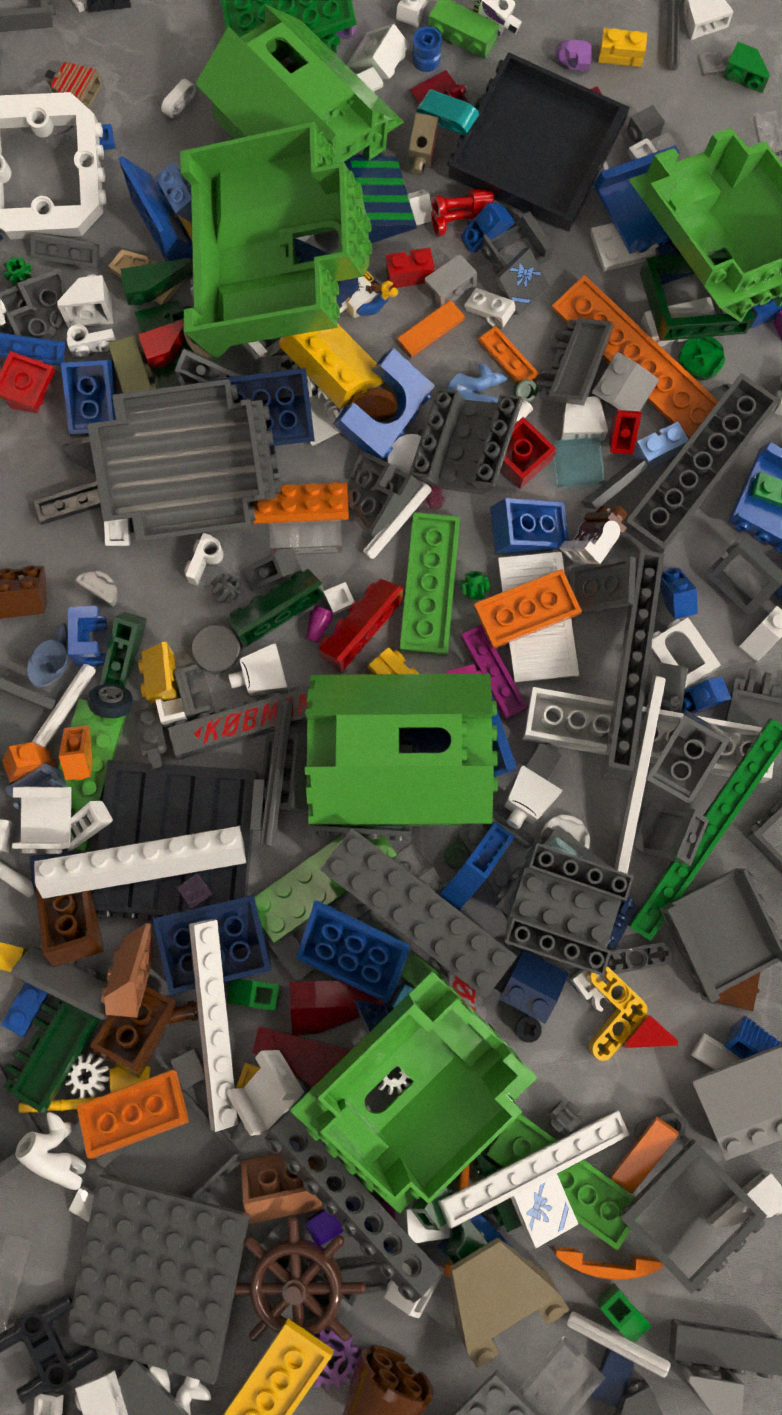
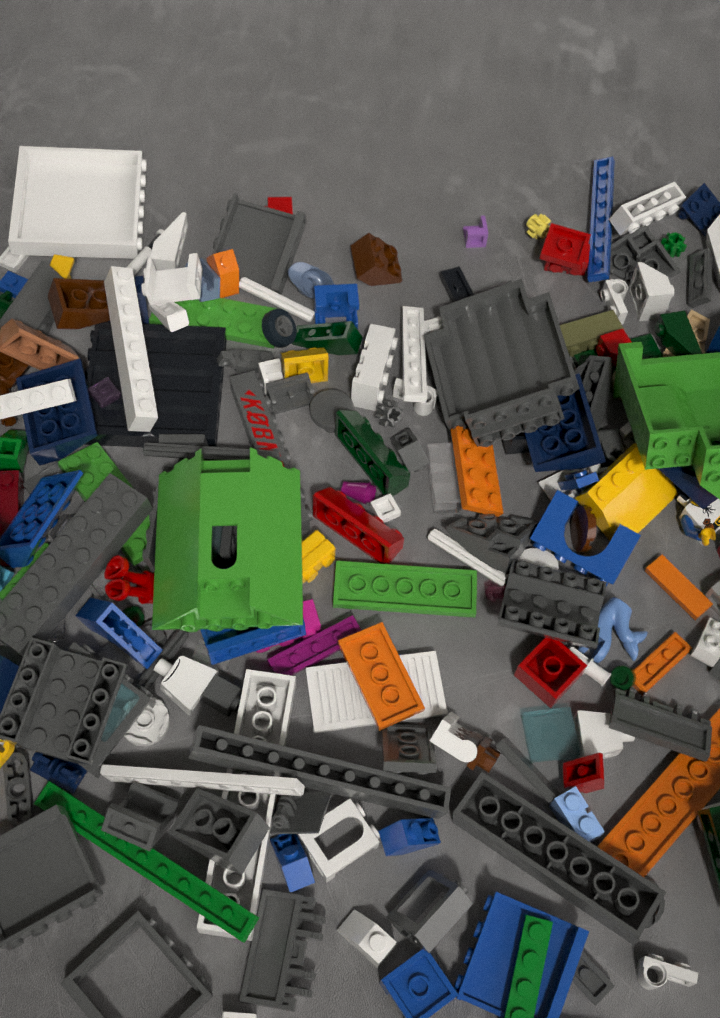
camera: 85 degrees right, 15 degrees down
(76, 753) = (231, 303): orange slope -> none
(88, 393) = (571, 297): blue slope -> none
(100, 585) = (387, 316): light grey plate -> none
(155, 555) = (413, 355): none -> white plate
(164, 600) = (372, 368): none -> white wedge
(261, 673) = (310, 446): white torso -> none
(324, 401) = (578, 480): none -> blue plate
(431, 839) = (120, 588): none -> red piece
(475, 585) = (404, 628): green gear -> none
(528, 525) = (473, 683): blue slope -> none
(625, 384) = (640, 776): light grey slope -> none
(702, 357) = (691, 872): green tile -> none

